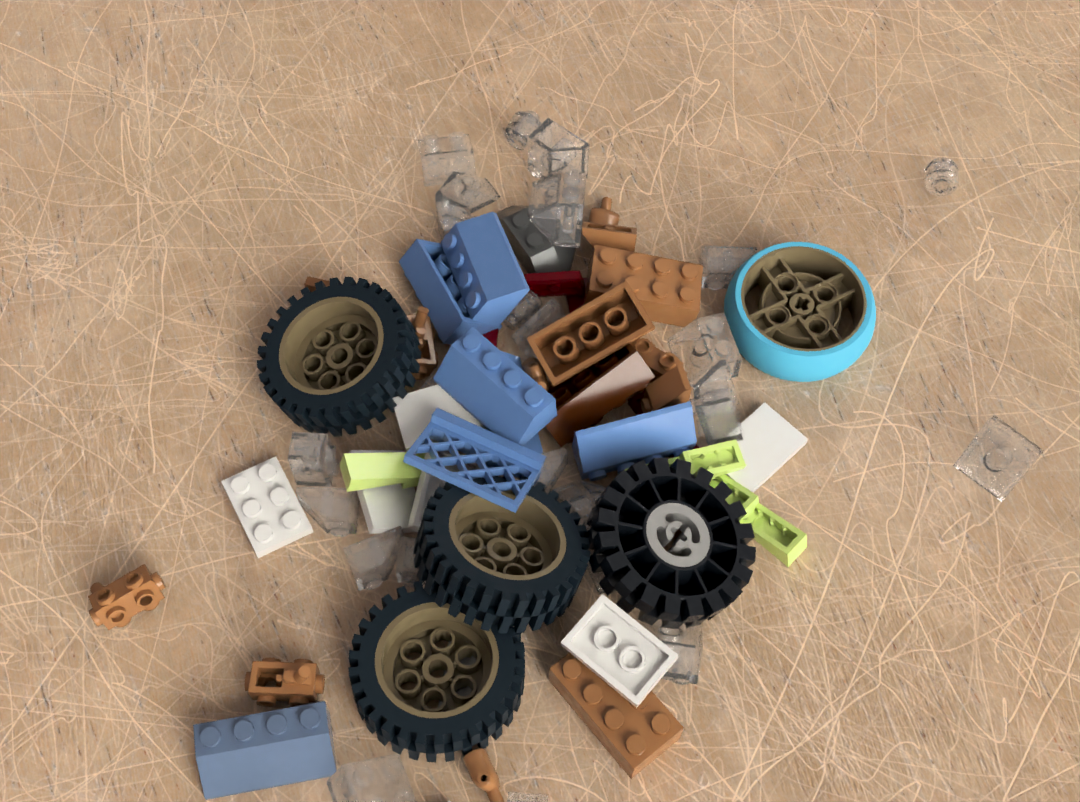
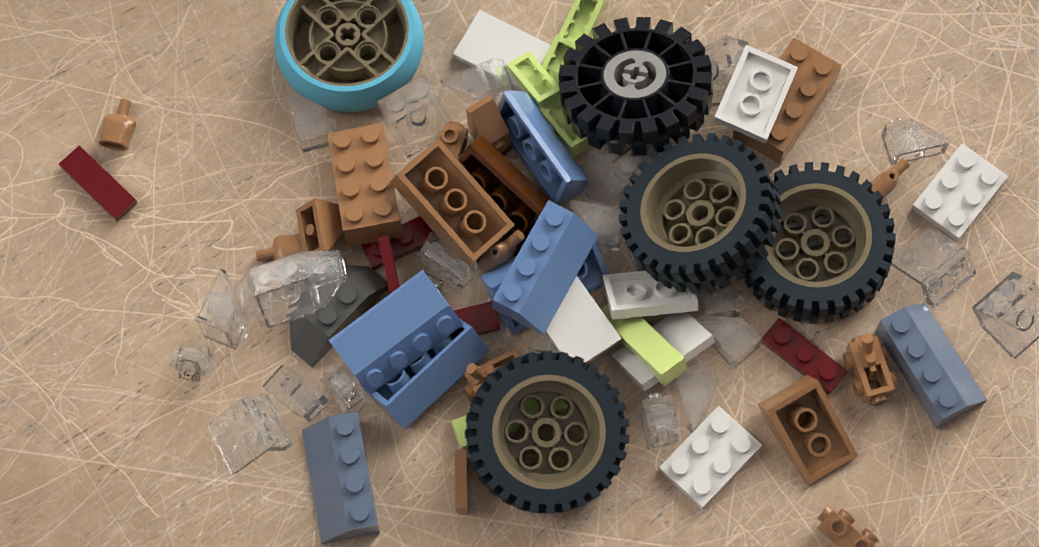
camera: 105 degrees left, 10 degrees up
(252, 599) = (808, 429): none -> medium nougat slope
(327, 627) = (803, 355): none -> dark red plate
(376, 213) = (340, 478): none -> sand blue slope
(480, 448) = (604, 262): medium blue fence -> none
(715, 106) = (98, 183): none -> dark red tile
(764, 129) = (118, 128): none -> medium nougat piece

